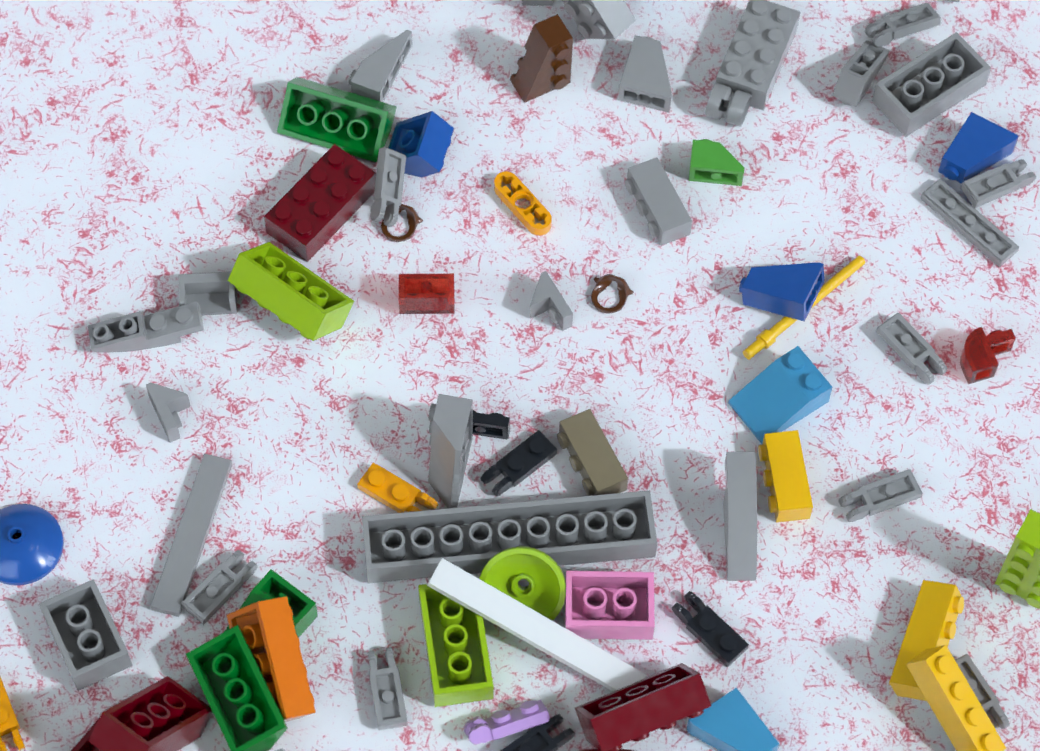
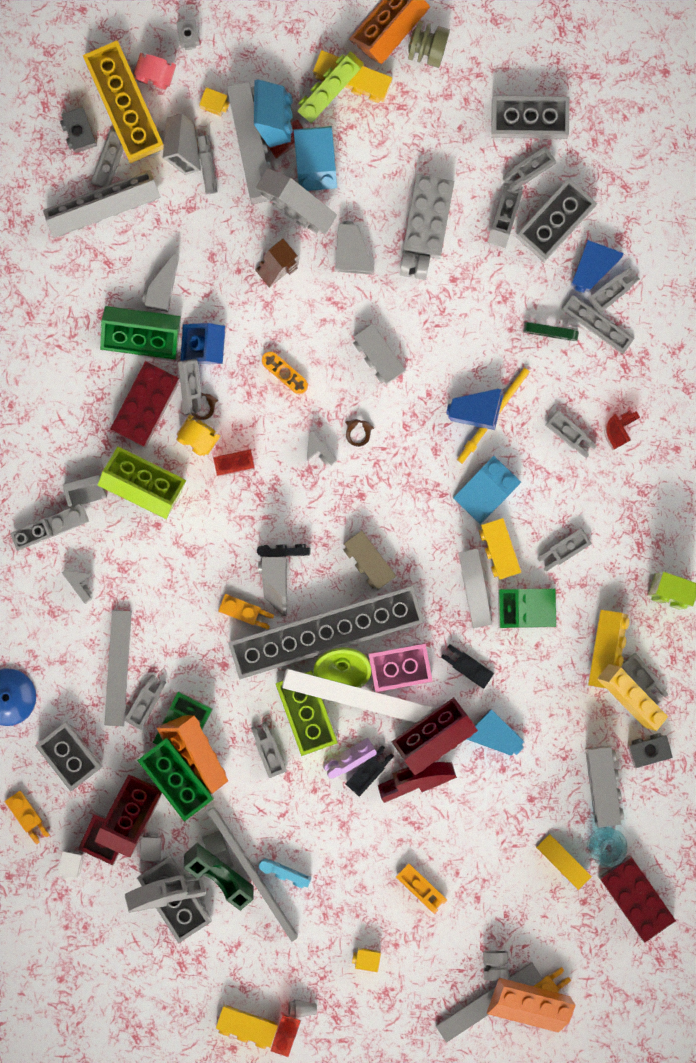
camera: 10 degrees left, 25 degrees up
(383, 249) = (197, 435): none -> yellow brick
(520, 462) = (323, 572): black hinge -> none
(714, 164) = (411, 315): bright green slope -> none
(811, 560) = (526, 608): none -> slope
(903, 216) = (550, 331): none -> dark green beam

